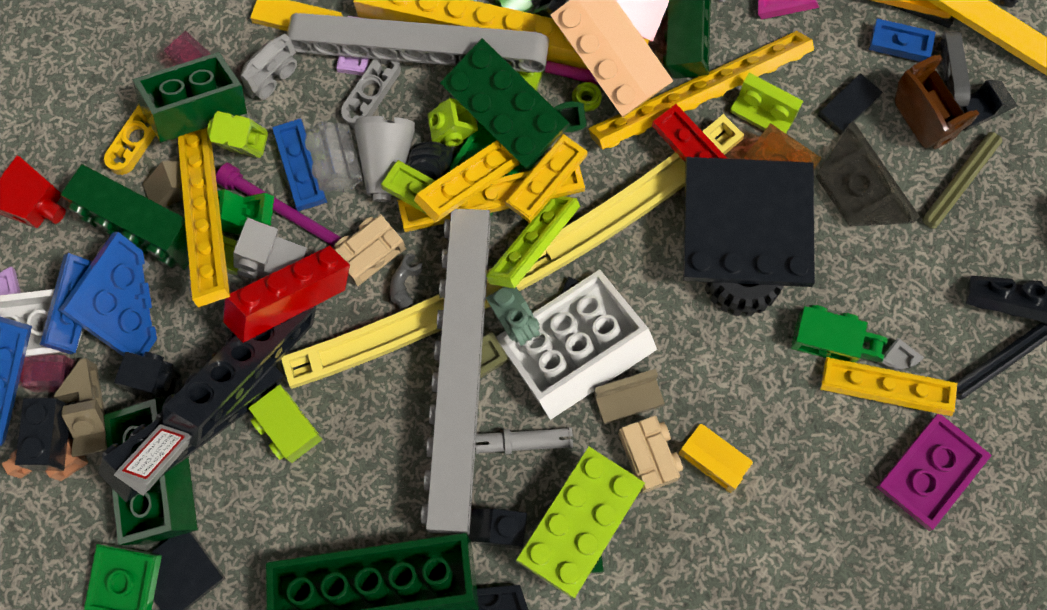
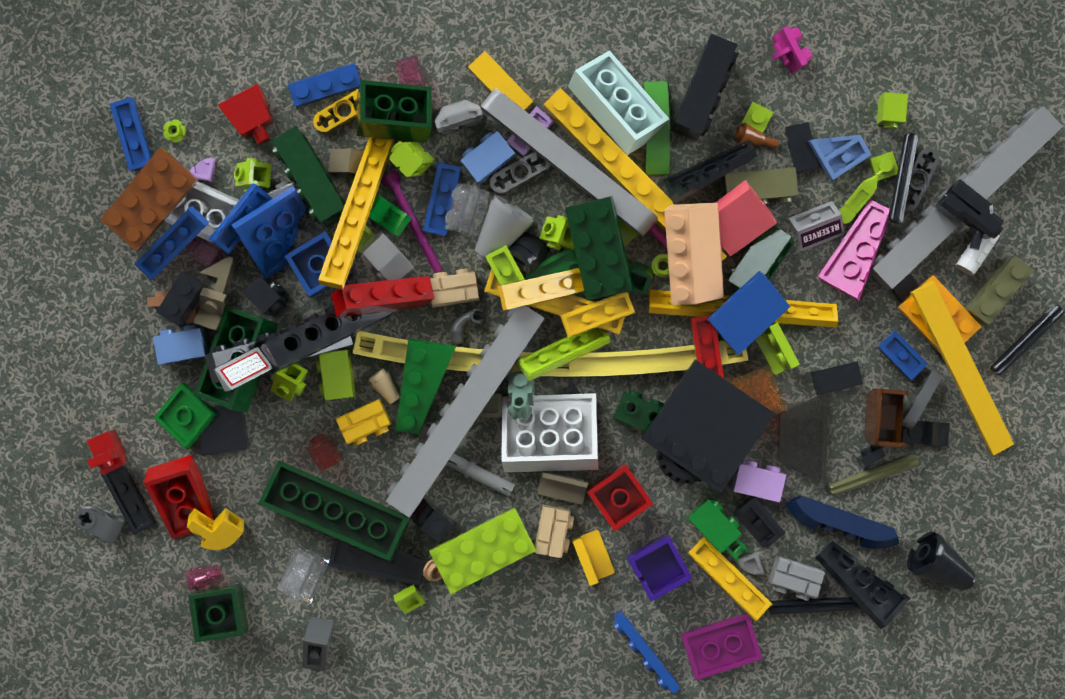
camera: 30 degrees right, 15 degrees up
(56, 247) = (252, 172): none -> lime brick
(72, 499) = (181, 346): none -> medium blue brick
(99, 123) = (324, 85): none -> blue plate
(180, 316) = (308, 263): none -> blue brick
(229, 462) = (289, 382): none -> lime brick
(320, 524) = (324, 452): none -> clear red brick
(324, 90) = (487, 157): none -> medium blue brick
(349, 404) = (384, 385): none -> tan cone
(349, 460) = (363, 422): none -> yellow brick
(388, 367) = (421, 379): none -> green wing
(536, 590) = (431, 571): none -> light nougat plate
(657, 261) = (636, 411): none -> dark green brick
(702, 365) = (619, 497): none -> red brick
(711, 80) = (748, 312): none -> blue tile
(801, 418) = (659, 567): none -> dark purple piece
(846, 257) = (759, 482): none -> lavender brick
(866, 538) = (651, 660): none -> blue plate
(876, 301) = (758, 522): none -> black hinge
(944, 159) = (870, 455): none -> black plate
(961, 338) = (796, 577): none -> light grey brick
(985, 242) = (871, 533): none -> dark blue brick

